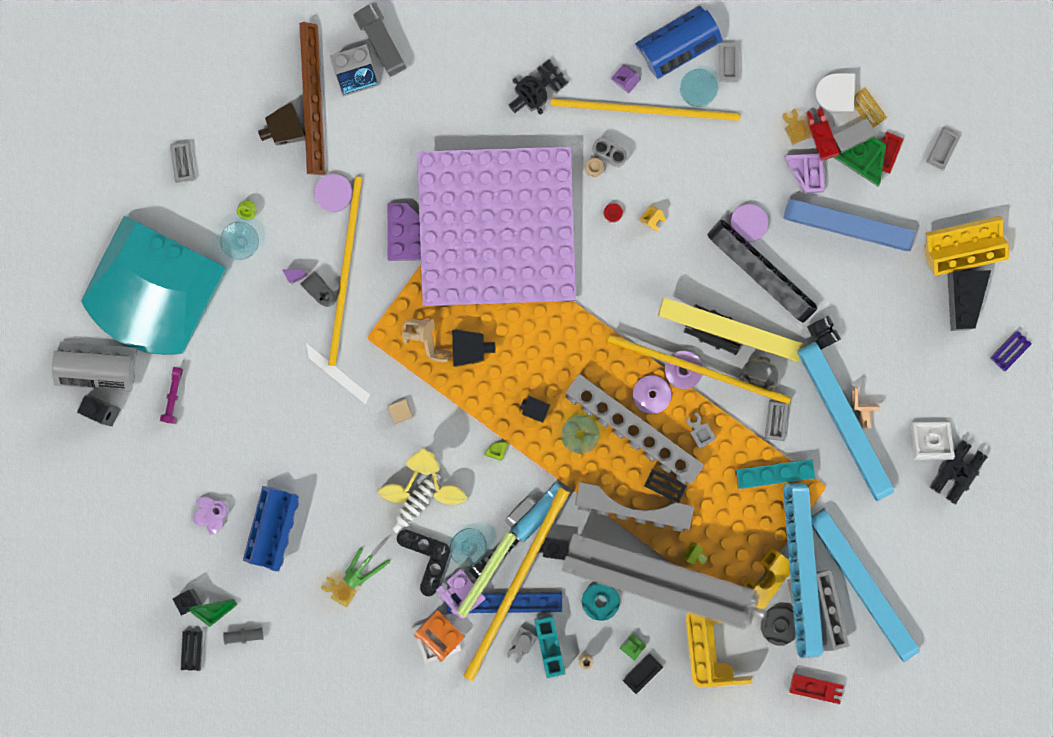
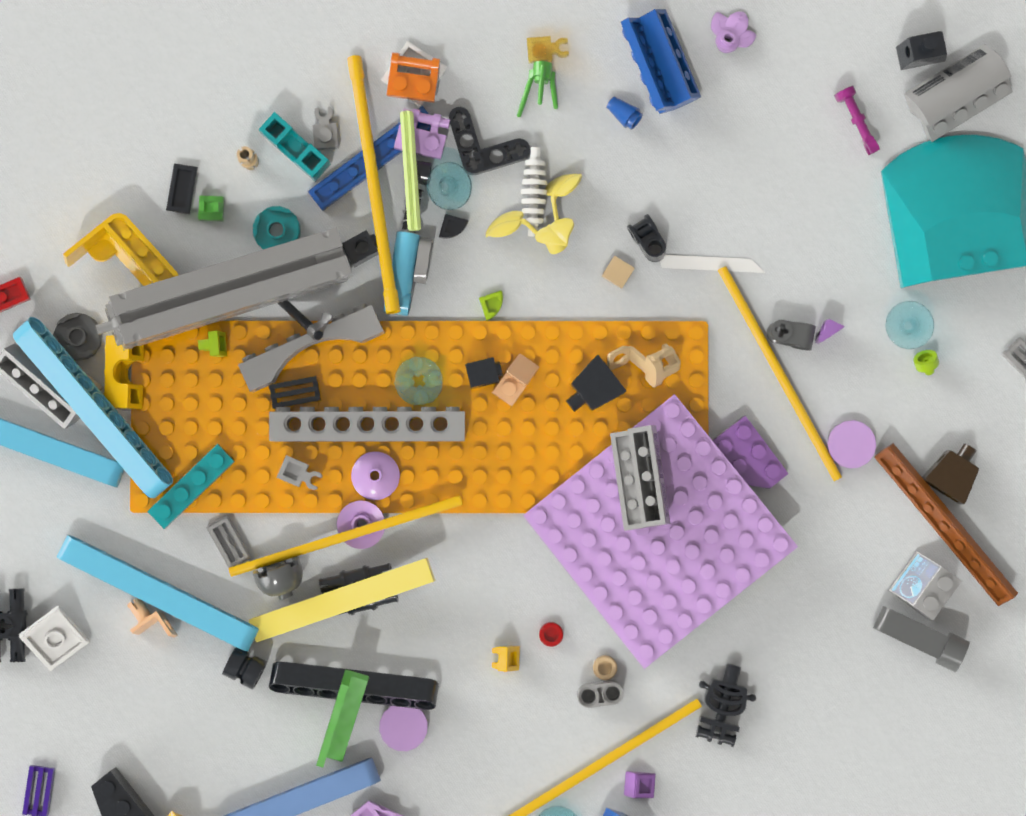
camera: 150 degrees right, 0 degrees up
(319, 512) = (624, 112): none -> blue cone
(365, 420) = (646, 234): none -> black piece
(485, 266) = (640, 478): none -> light grey brick
(485, 519) = (452, 226): none -> black tile
(517, 390) = (515, 379): none -> light nougat slope
(624, 514) = (314, 330): none -> piece
(783, 255) = (343, 717): none -> bright green fence

